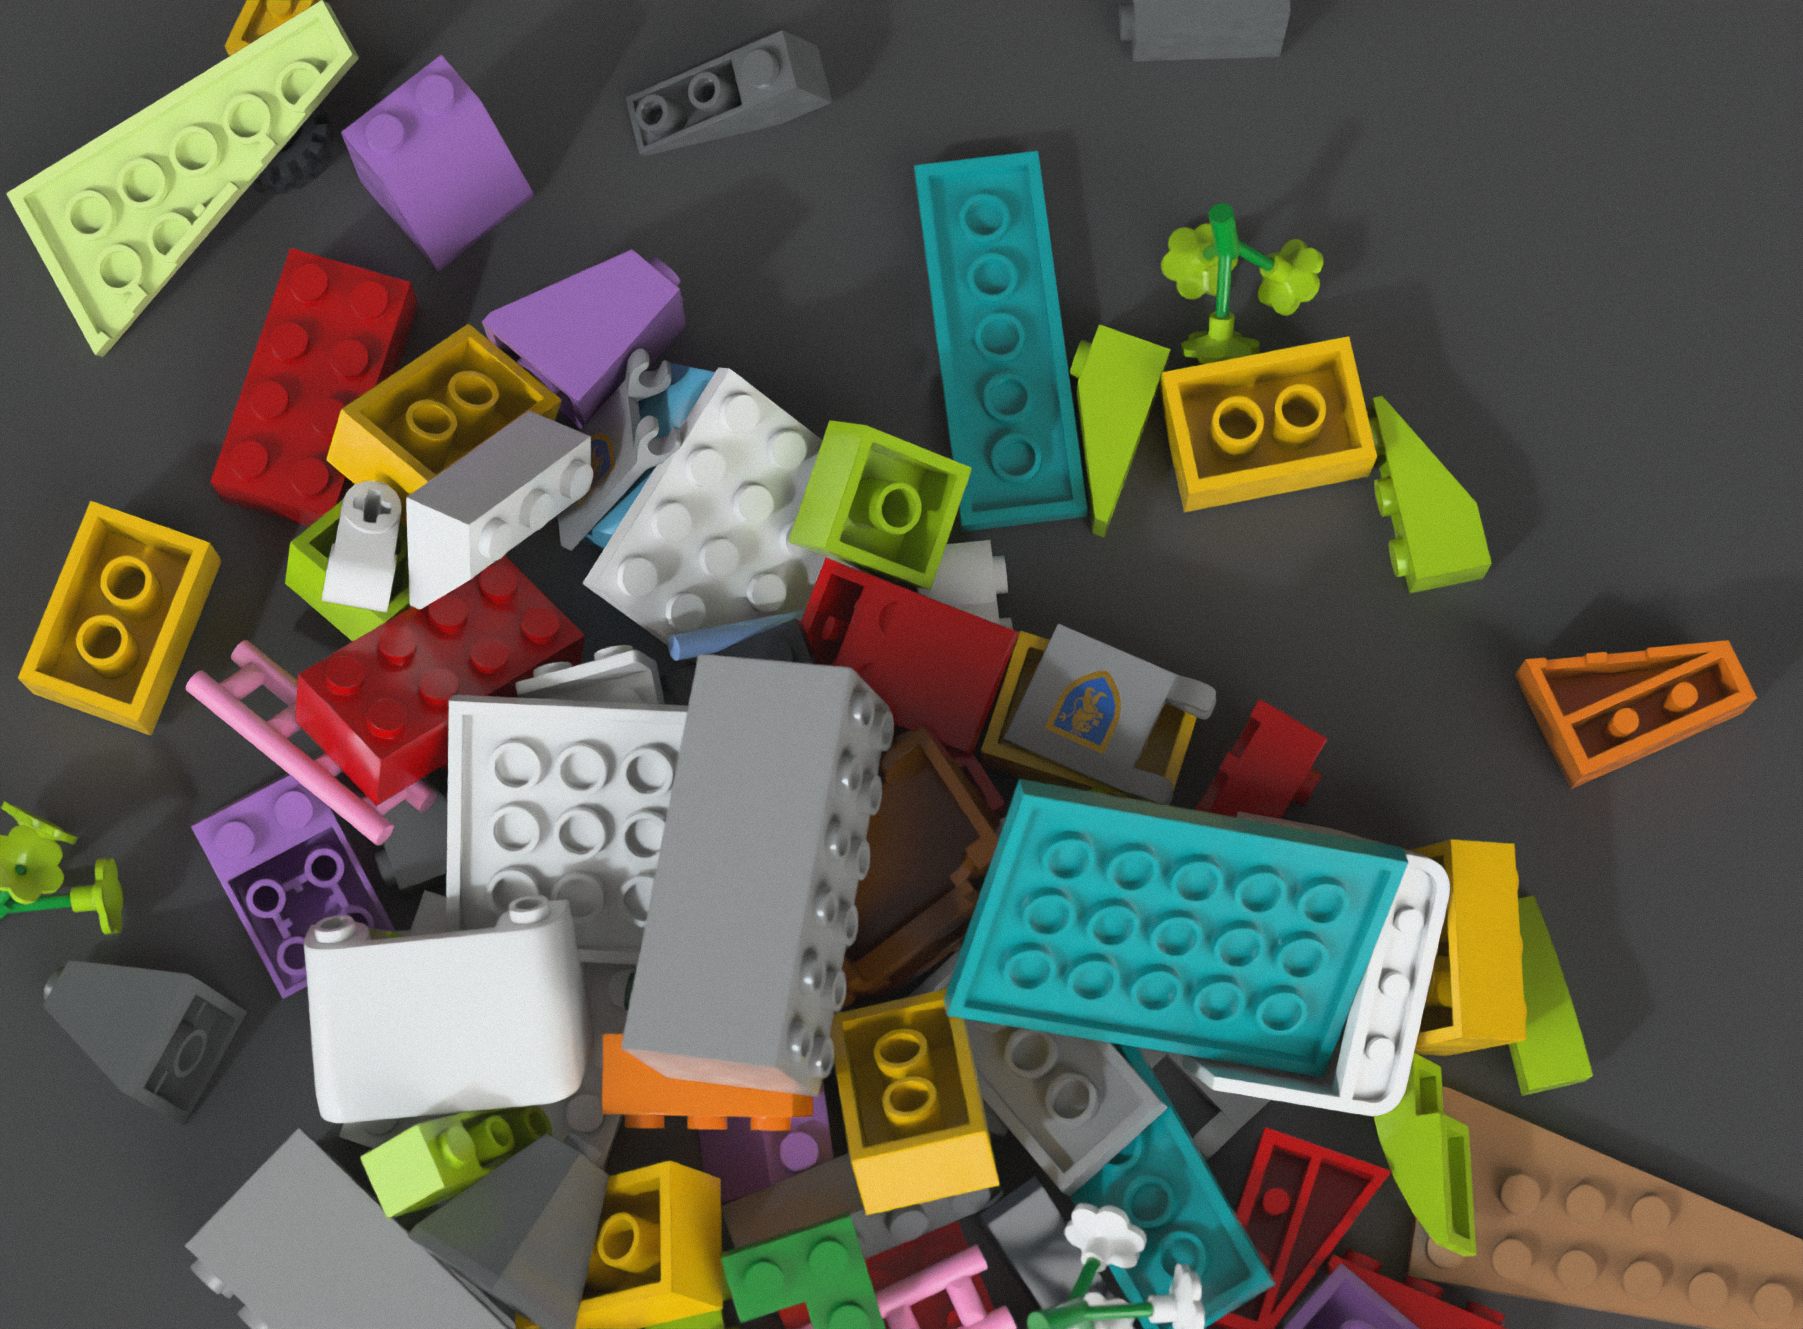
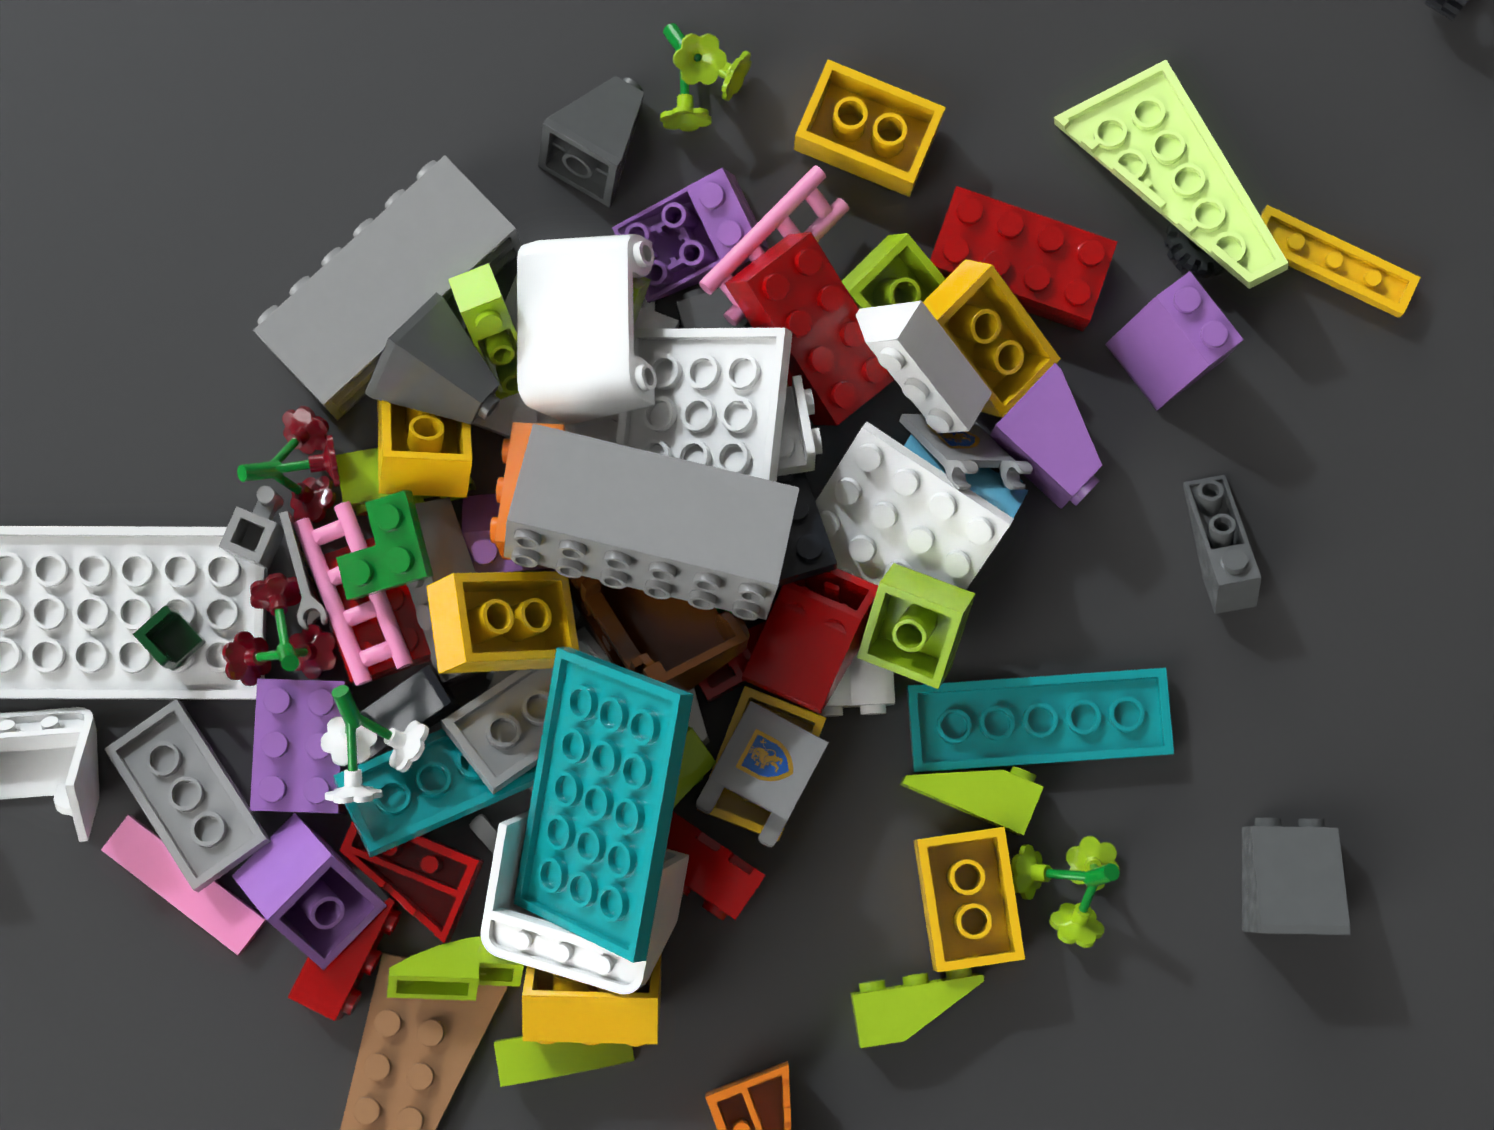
camera: 90 degrees right, 5 degrees up
(363, 555) = (891, 278): white piece -> none
(717, 638) = (830, 520): light blue piece -> none

